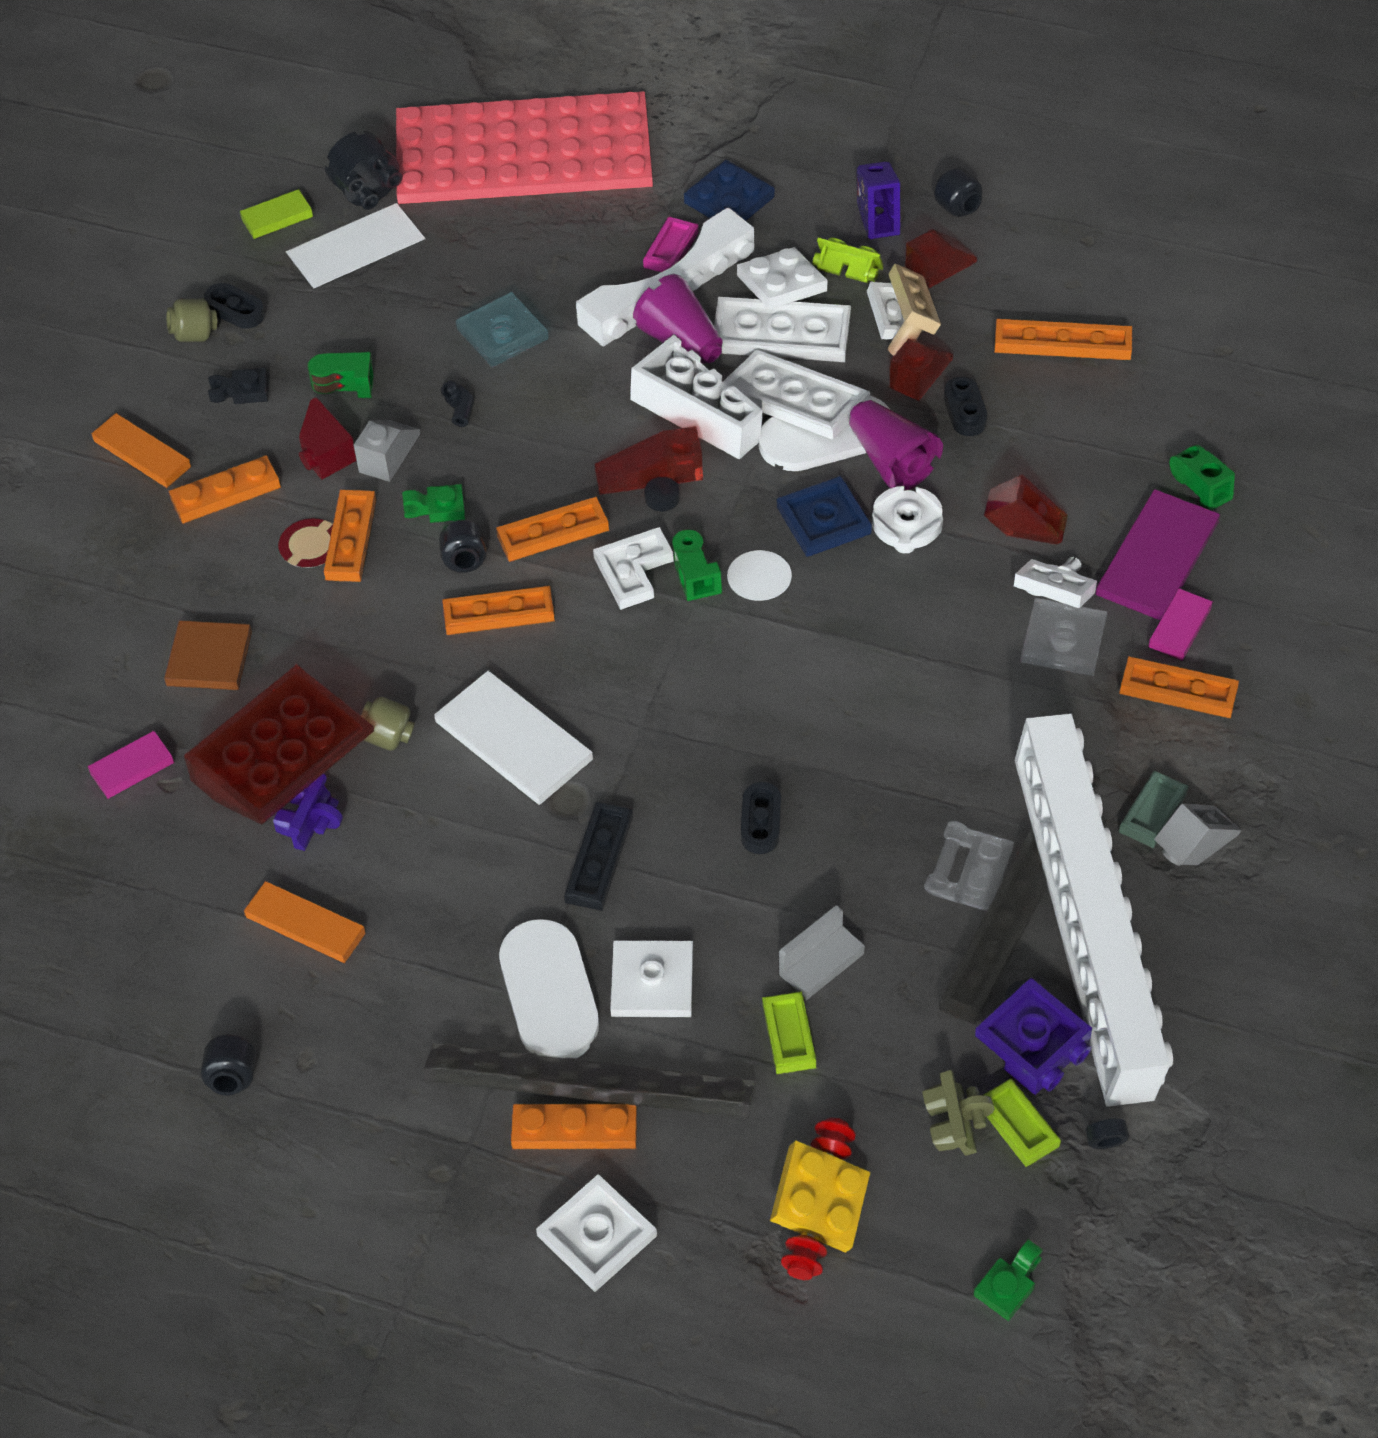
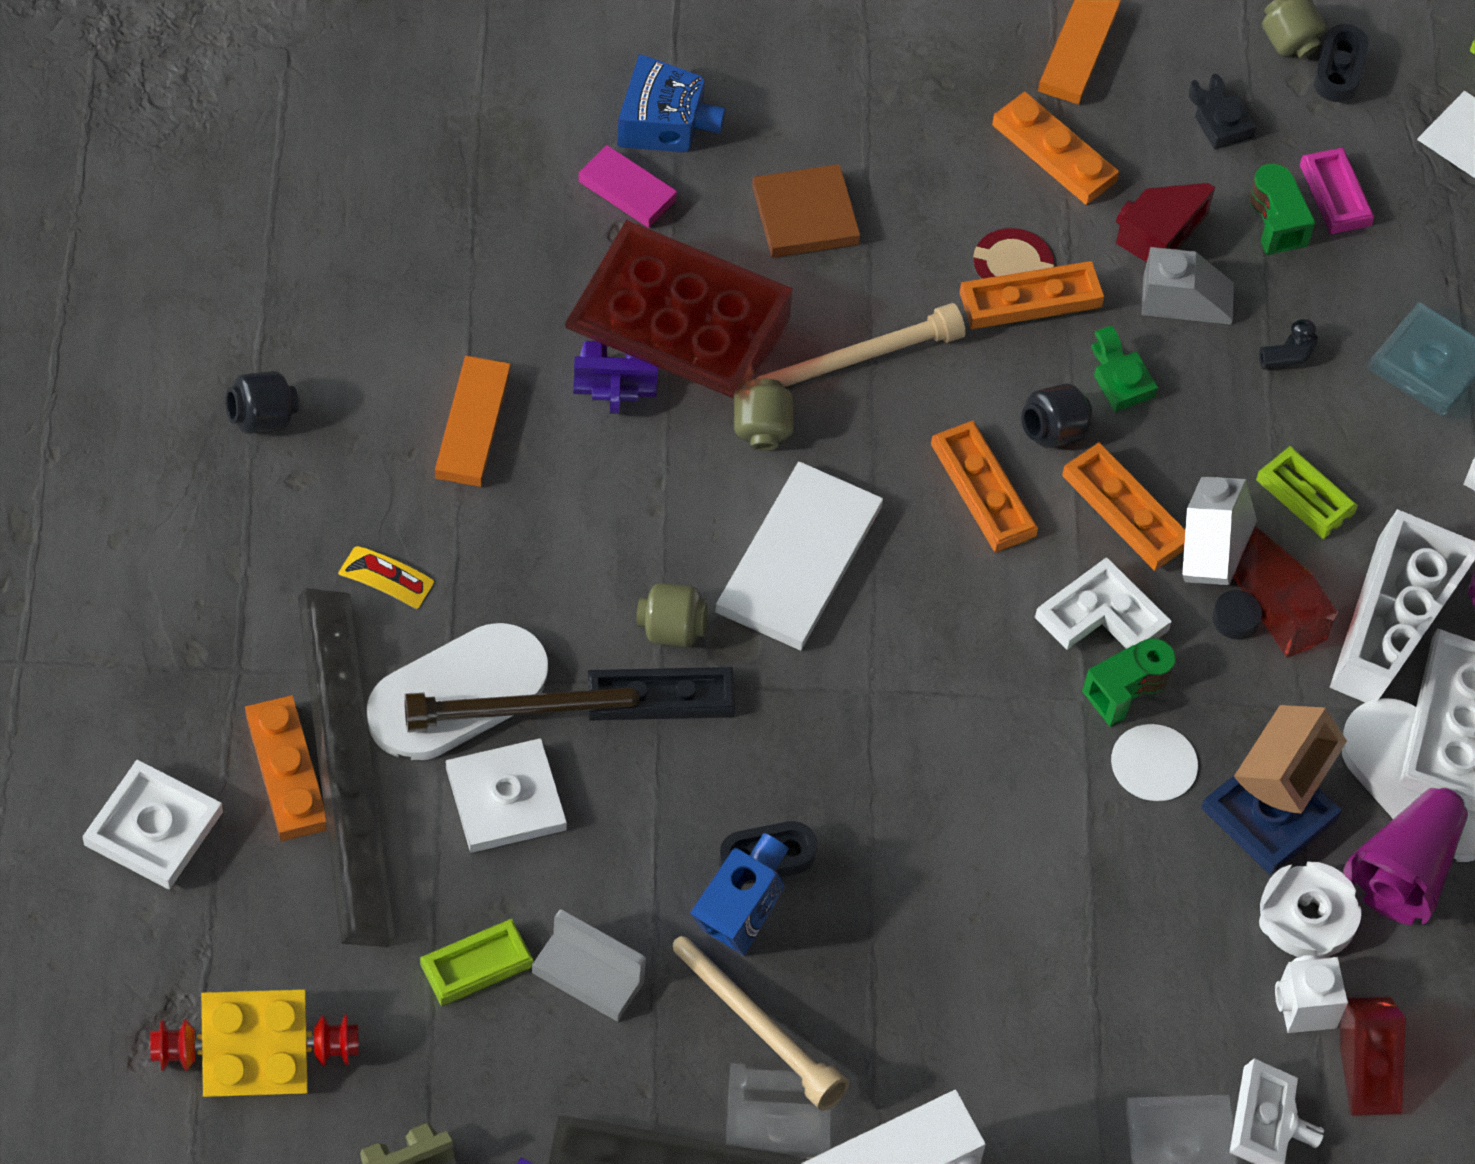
camera: 65 degrees right, 5 degrees up
(72, 718) = (665, 108): none -> blue torso
(336, 340) = (1336, 190): none -> dark pink tile
(352, 594) = (943, 325): none -> tan piece
(421, 1018) = (387, 576): none -> yellow sticker
(541, 824) = (673, 615): none -> olive head
(569, 1008) = (426, 711): none -> dark brown piece
(580, 433) = (1301, 497): none -> lime tile
(600, 478) = (1217, 530): none -> light grey slope
(797, 485) = (1291, 757): none -> medium nougat brick
(806, 831) = (738, 914): none -> blue torso
(964, 825) = (822, 1083): none -> tan piece
(973, 531) = (1311, 994): none -> white brick

